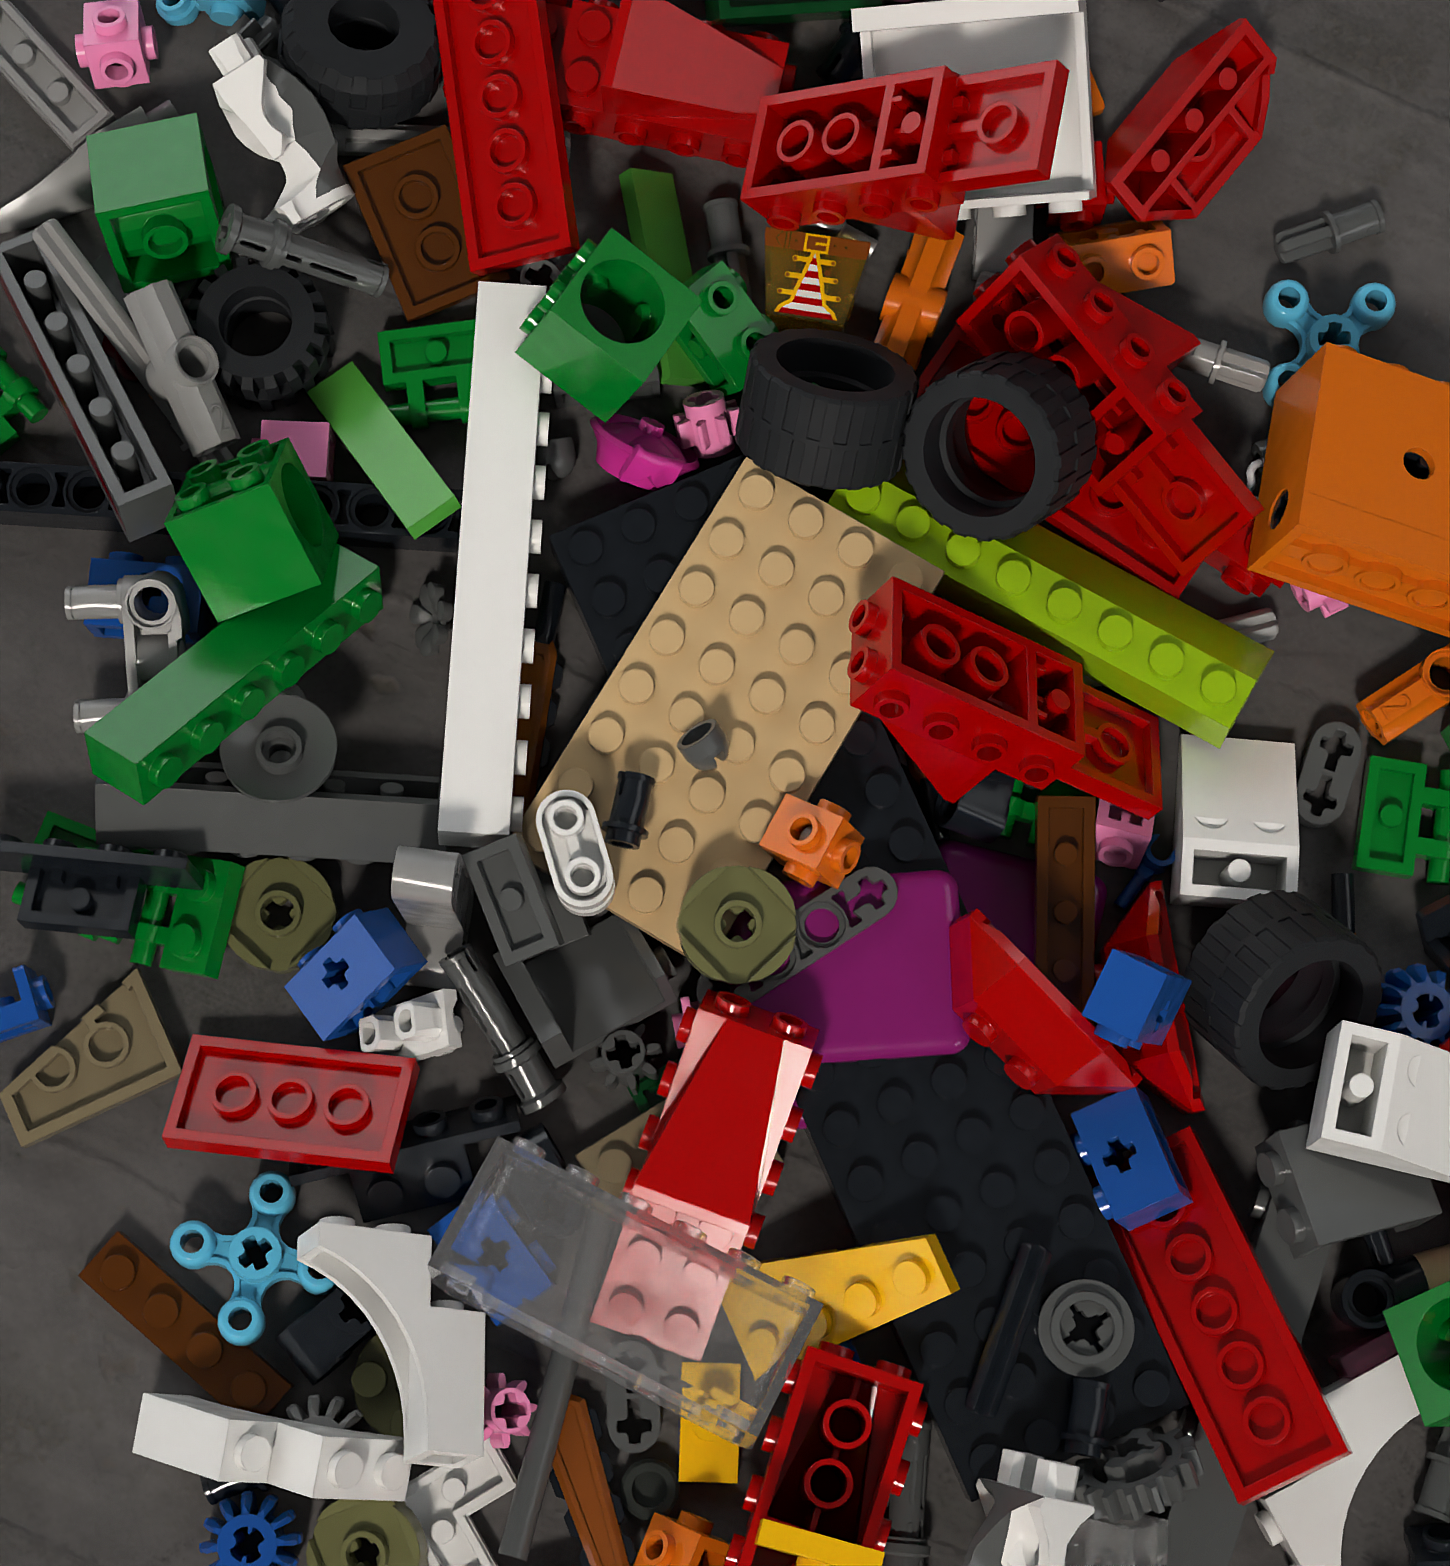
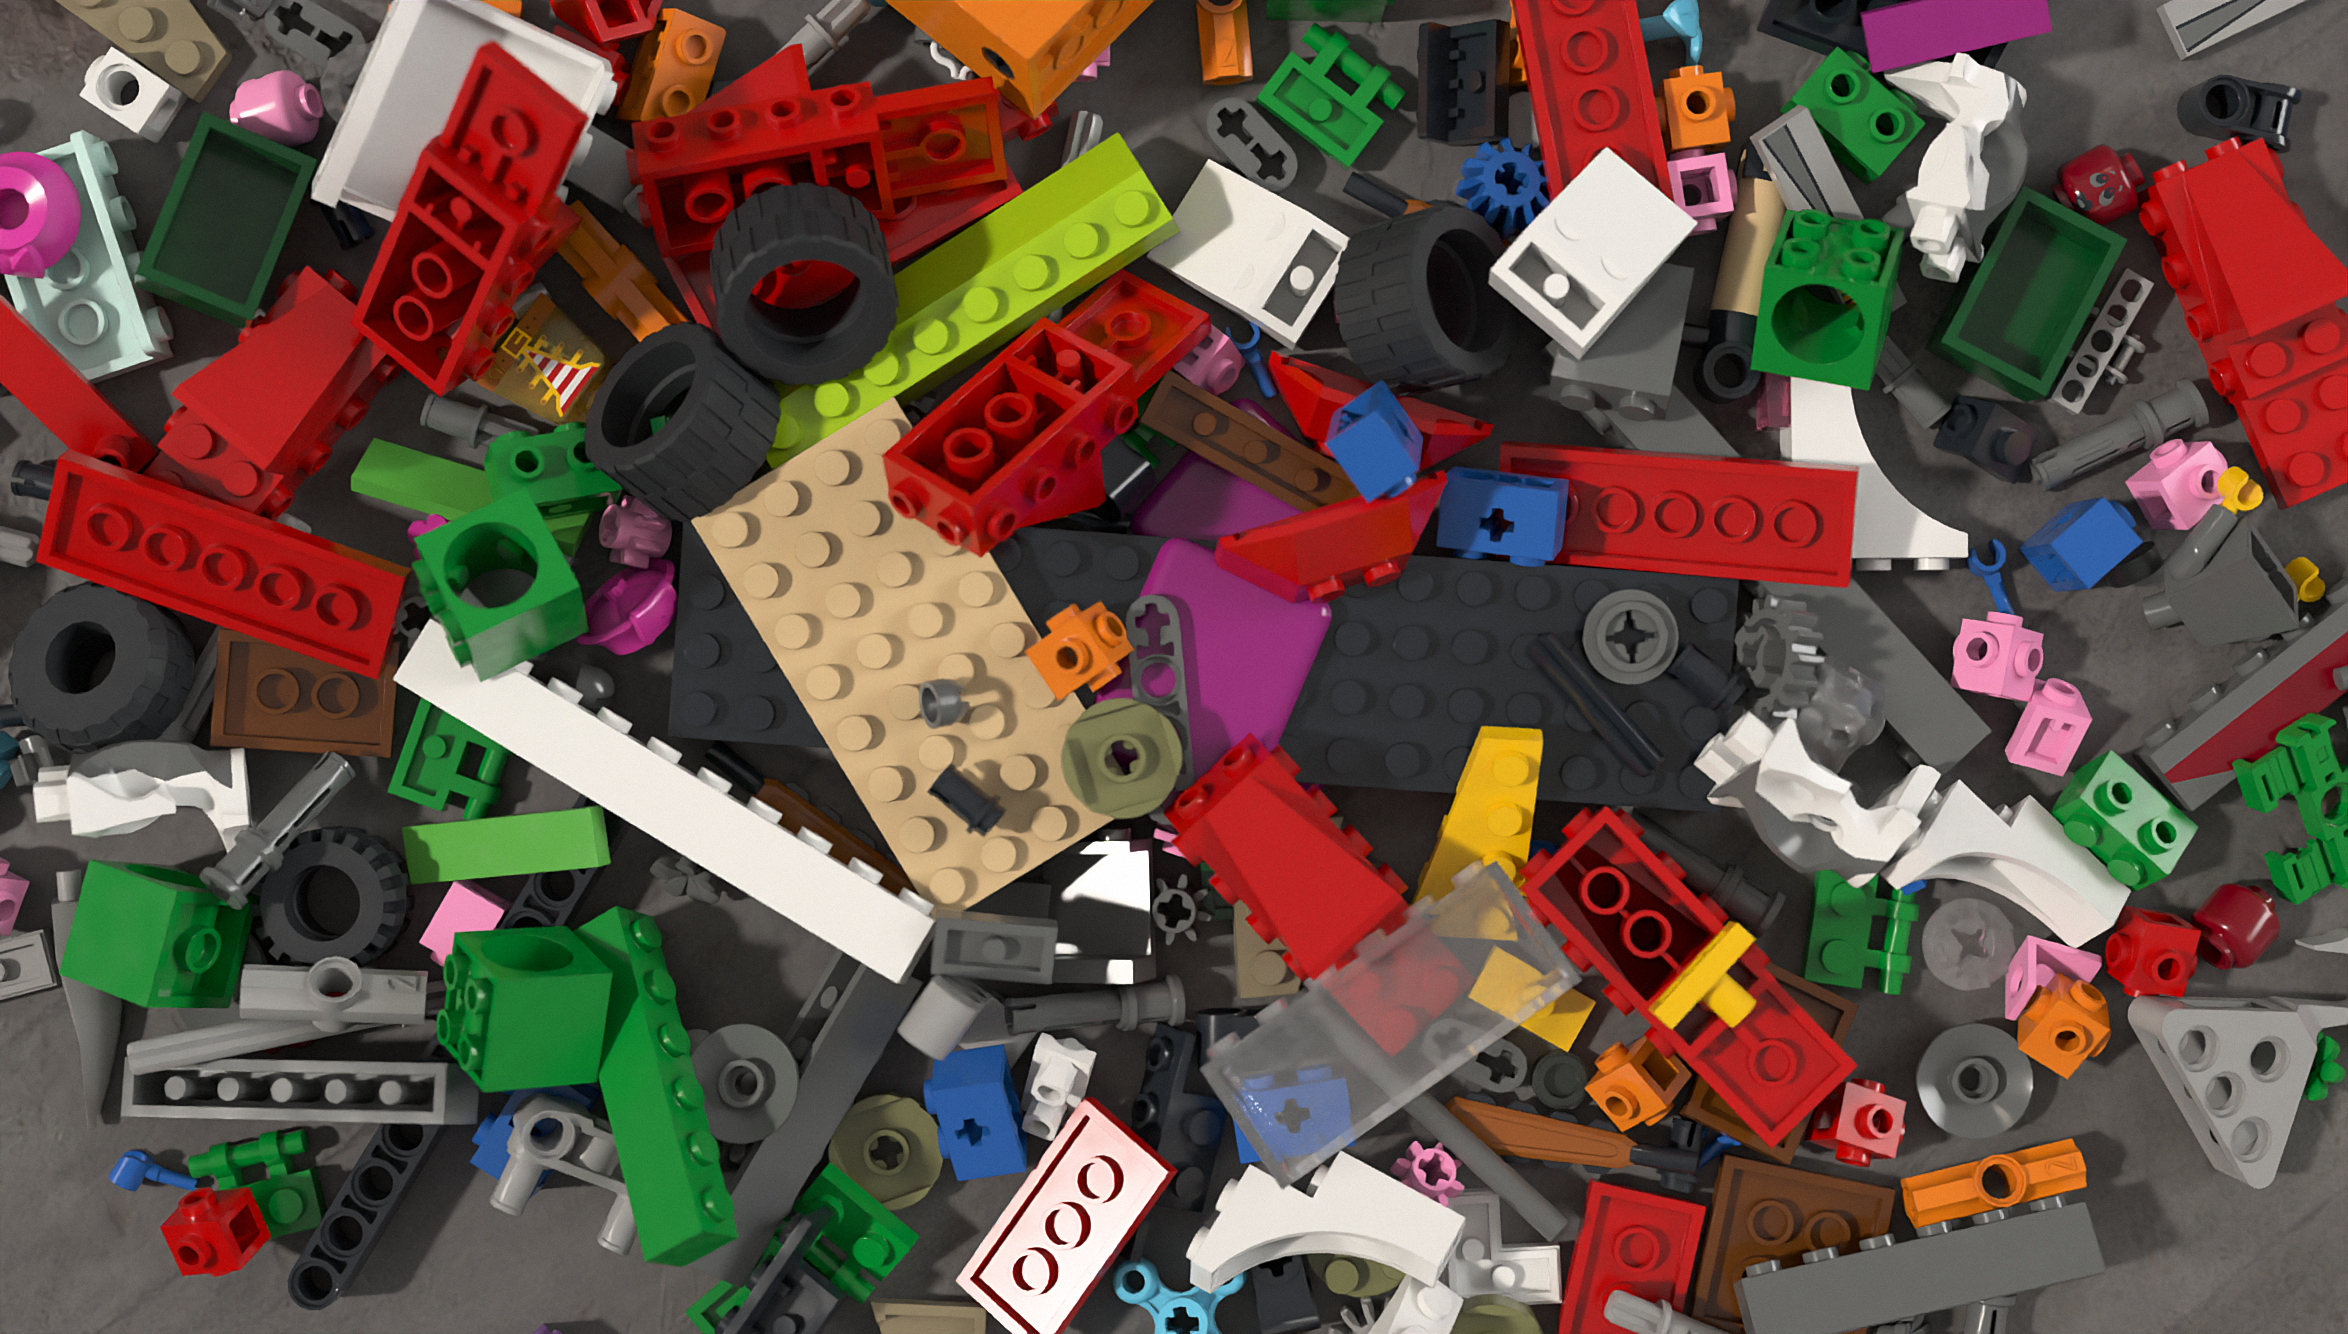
camera: 60 degrees left, 10 degrees up
(575, 852) = (982, 870): white brick -> none

